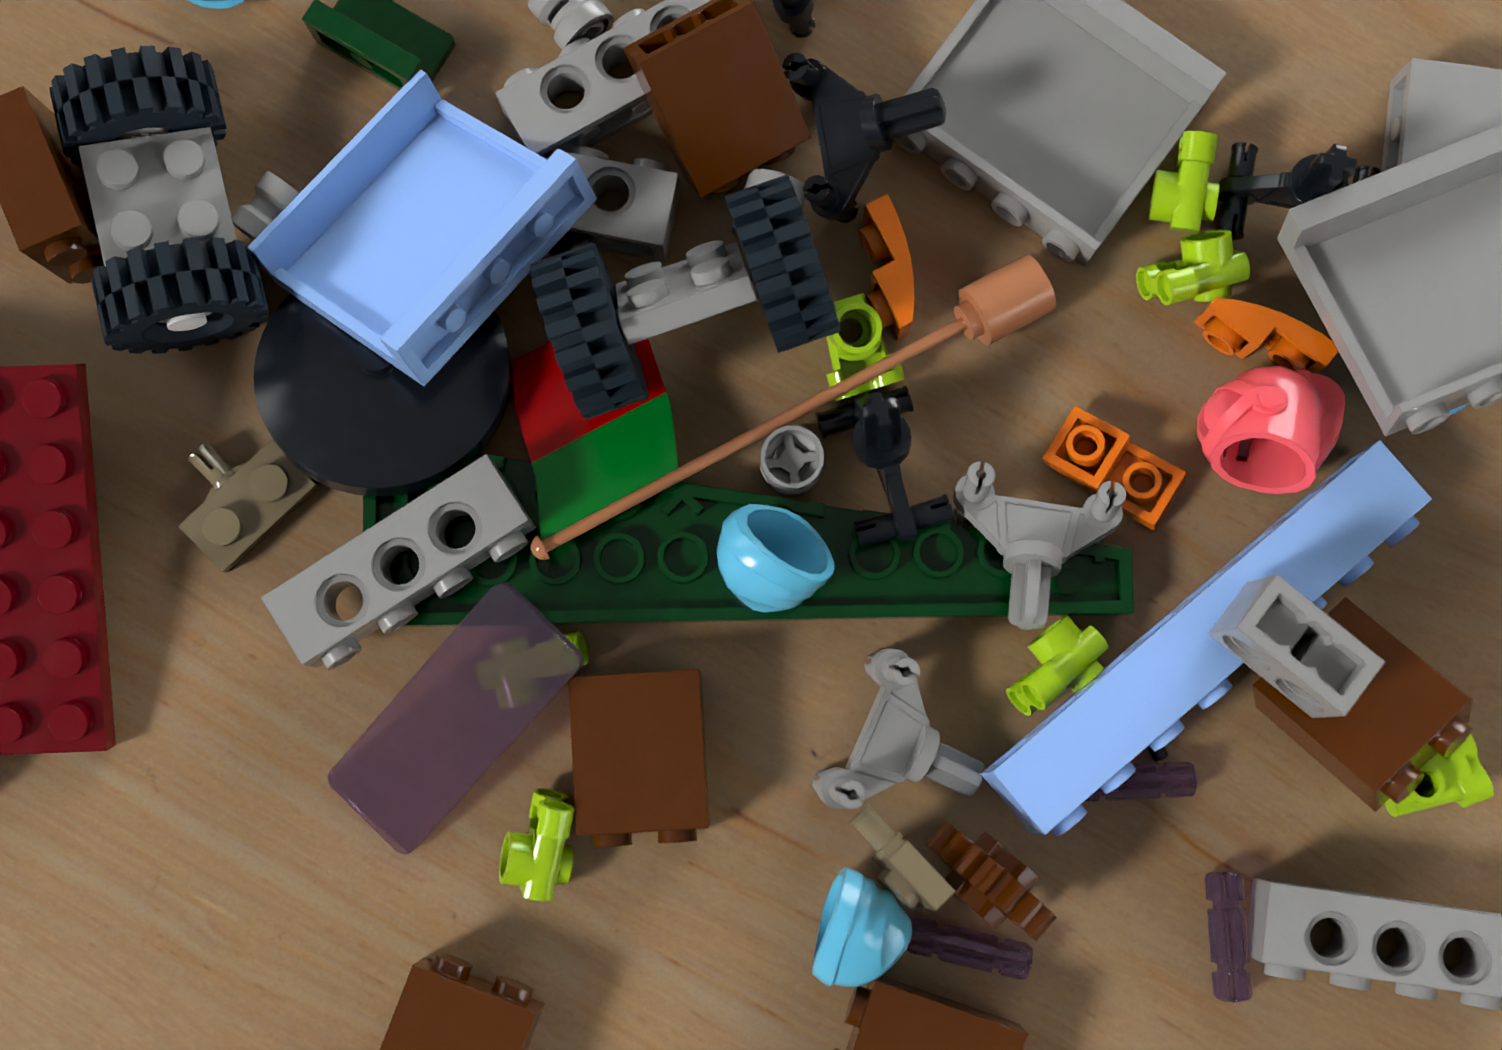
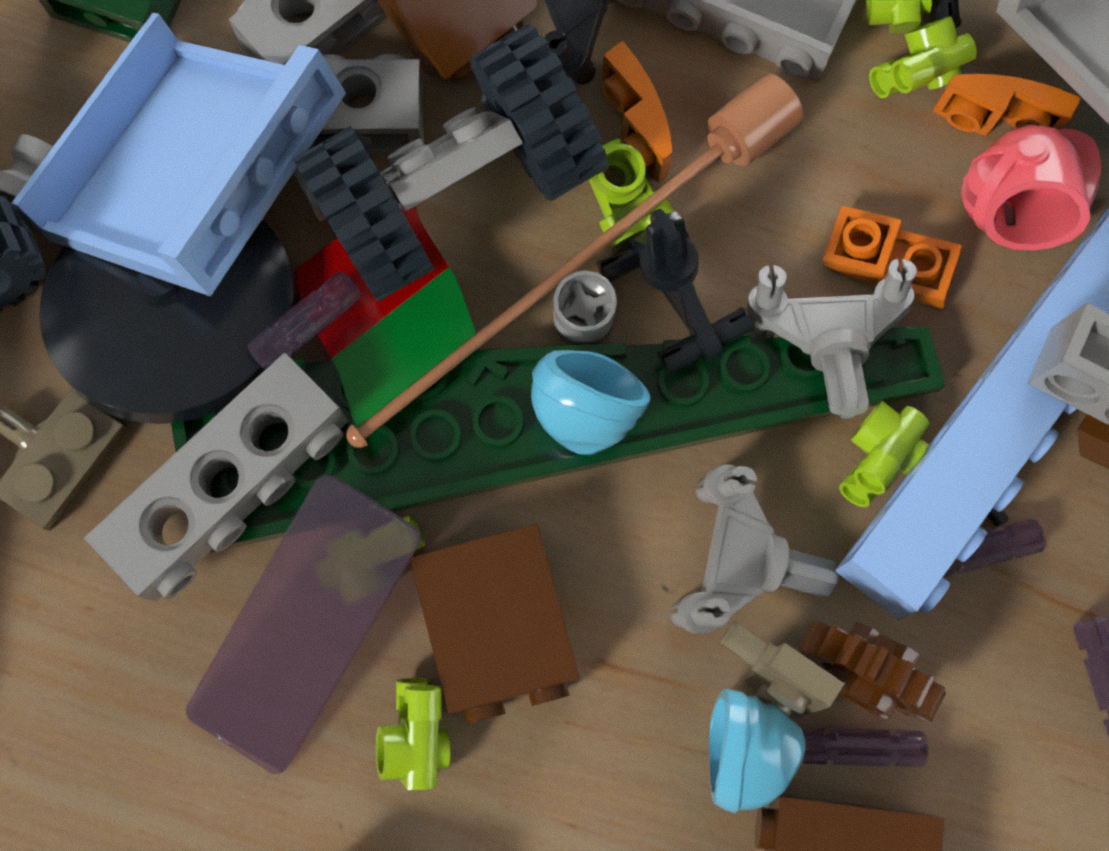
camera: 15 degrees left, 5 degrees down
(512, 421) = (305, 319): none -> clear purple axle

